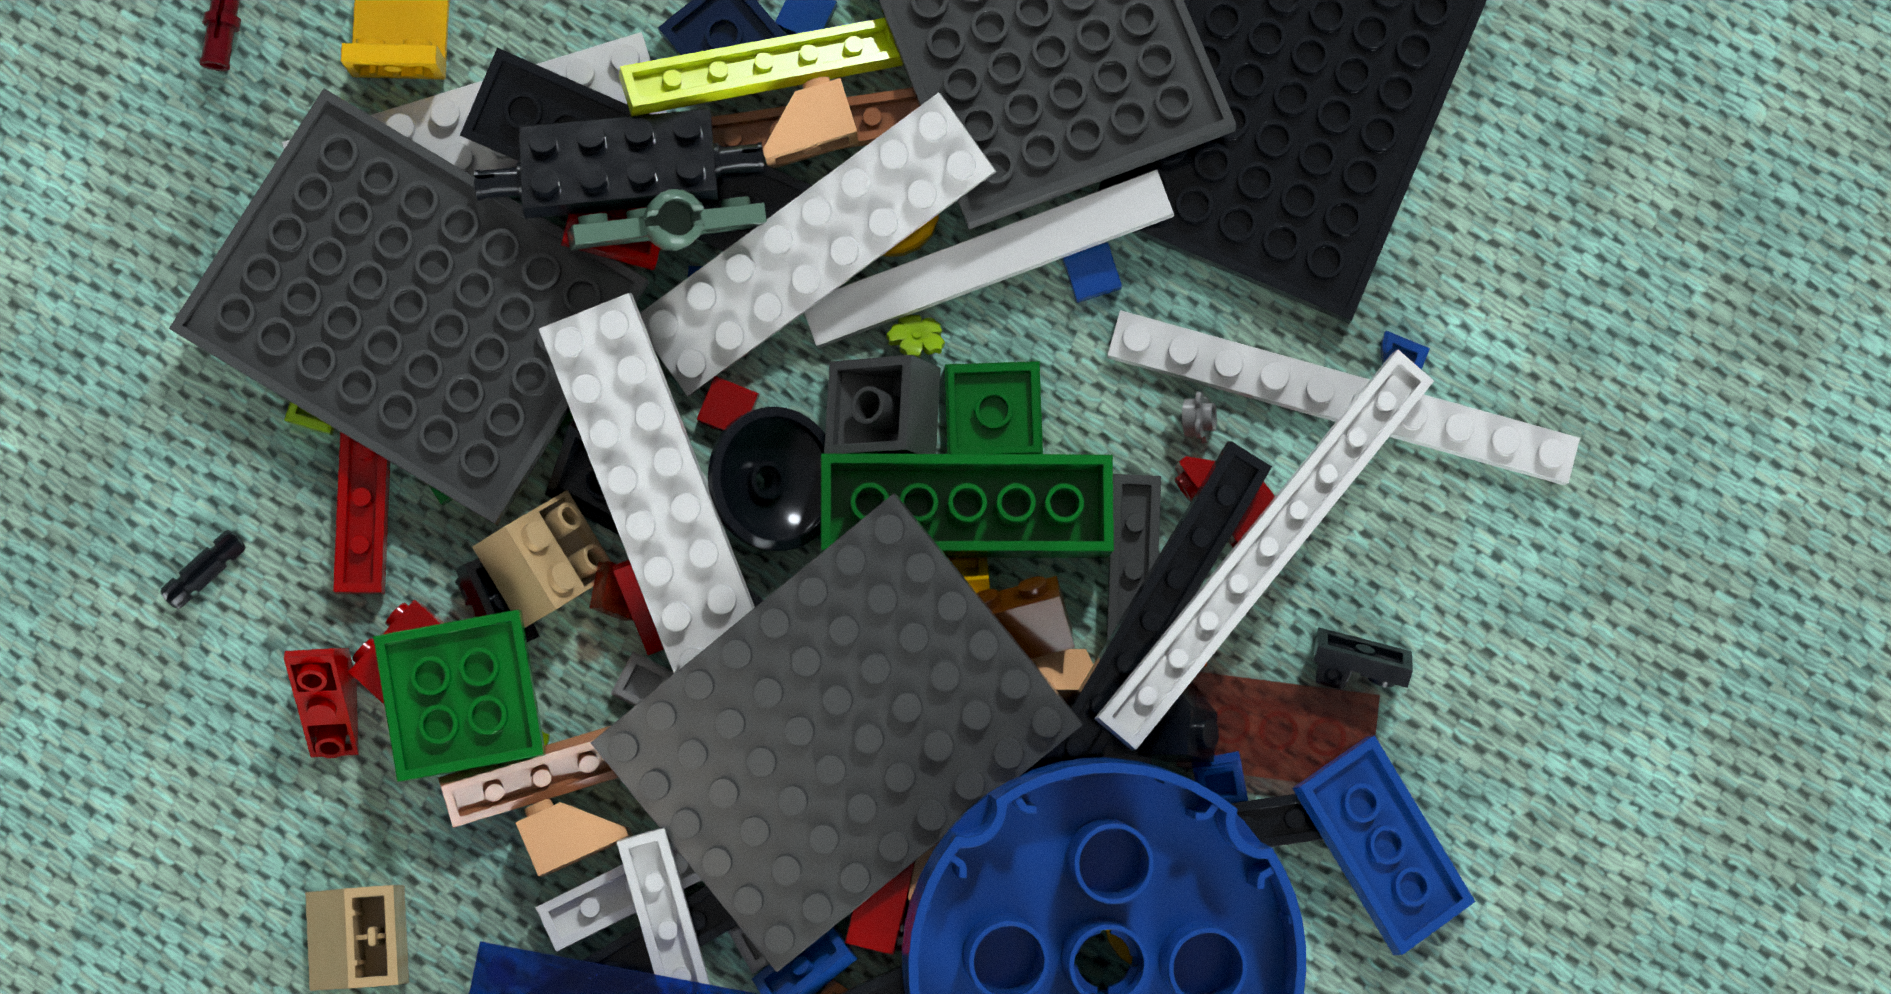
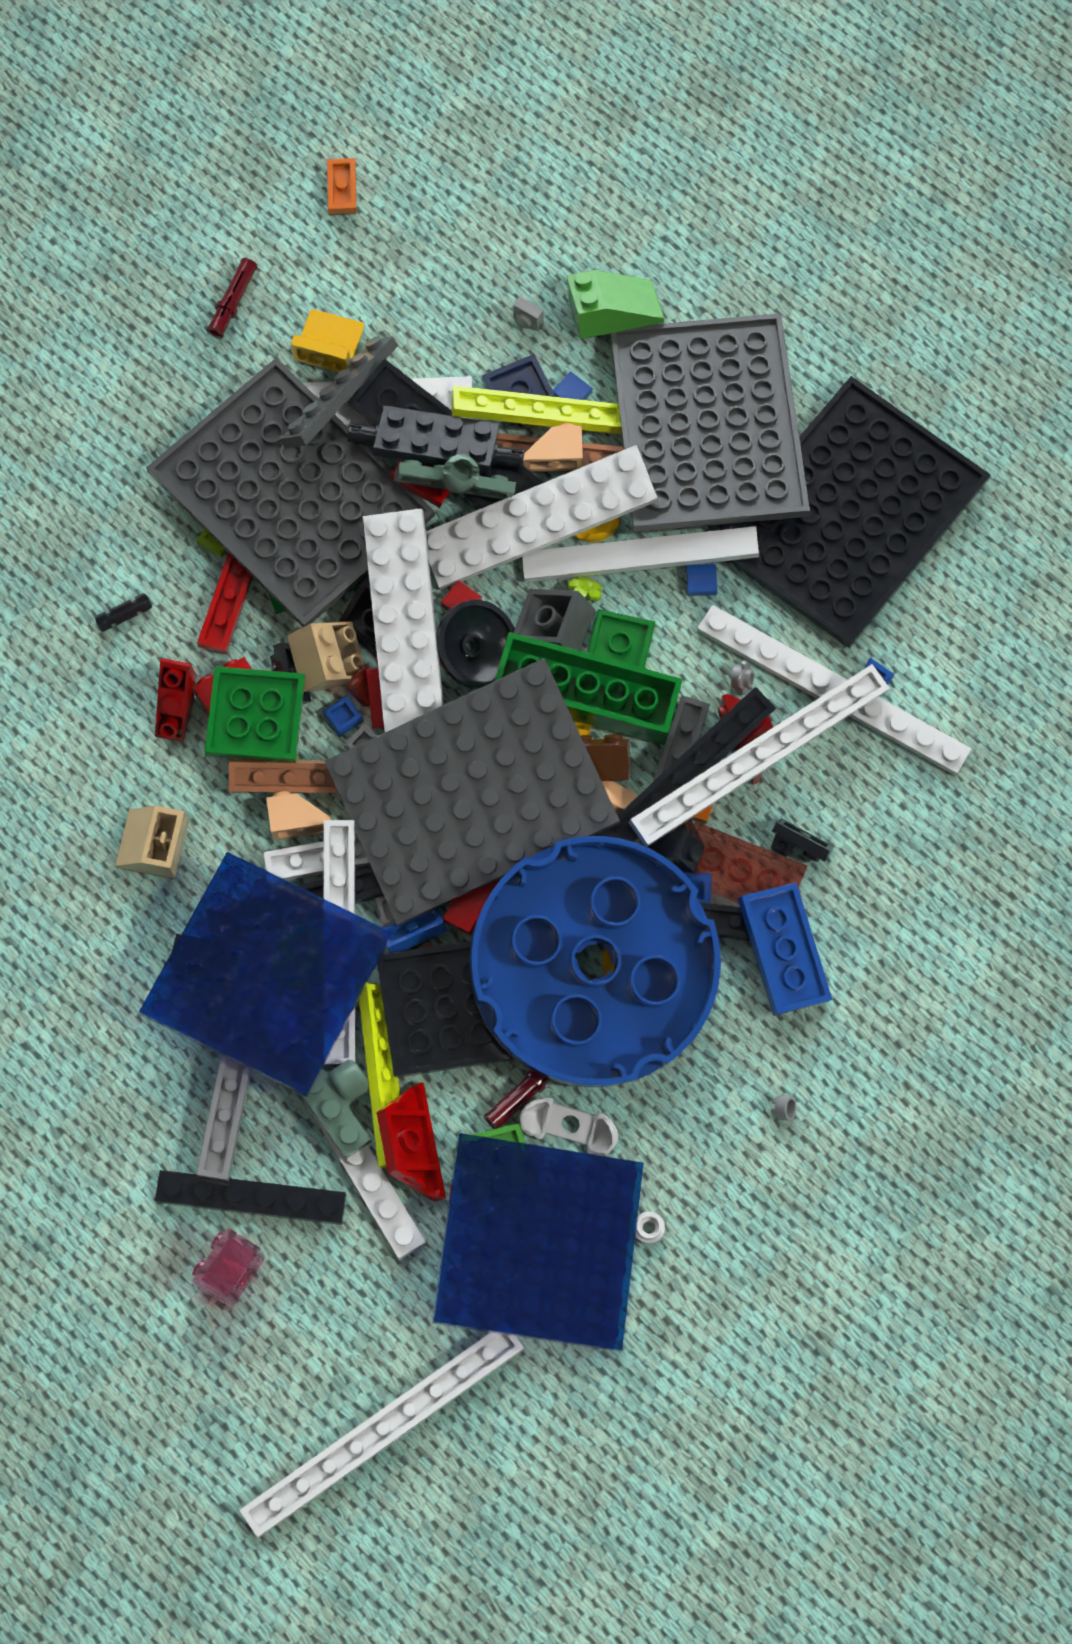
camera: 15 degrees right, 10 degrees down
(440, 124) = (339, 392): none -> dark grey plate
(596, 646) = (343, 716): none -> blue tile

